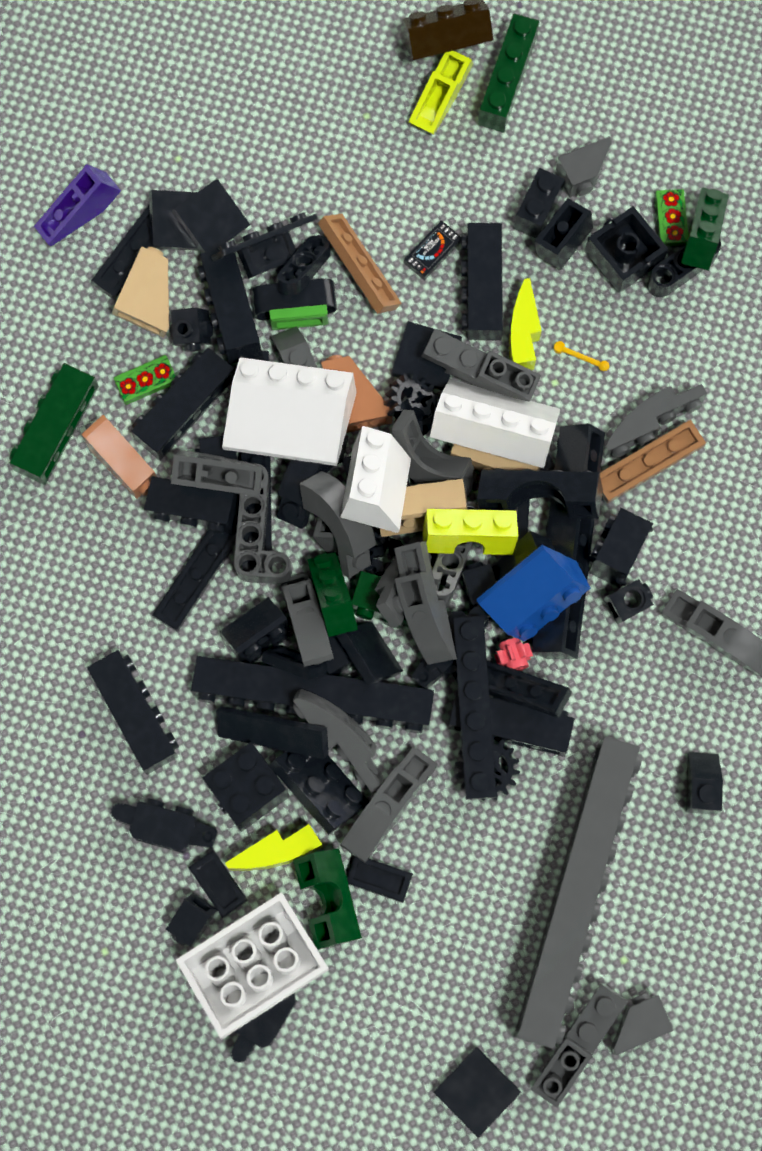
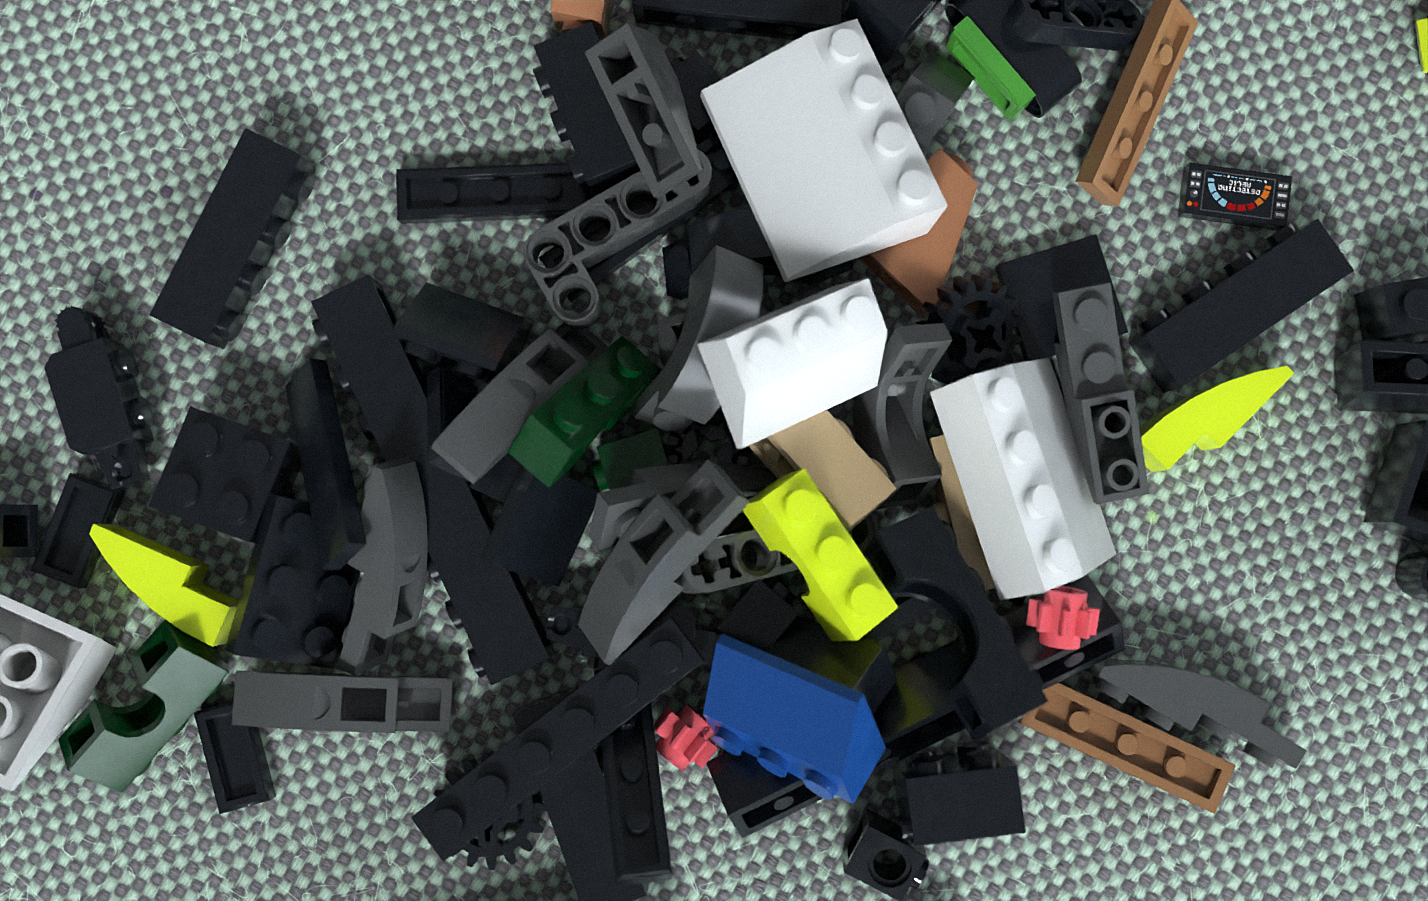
camera: 60 degrees right, 10 degrees up
(559, 347) = (1213, 489): yellow hinge -> none
(569, 445) = (1062, 617): none -> coral gear

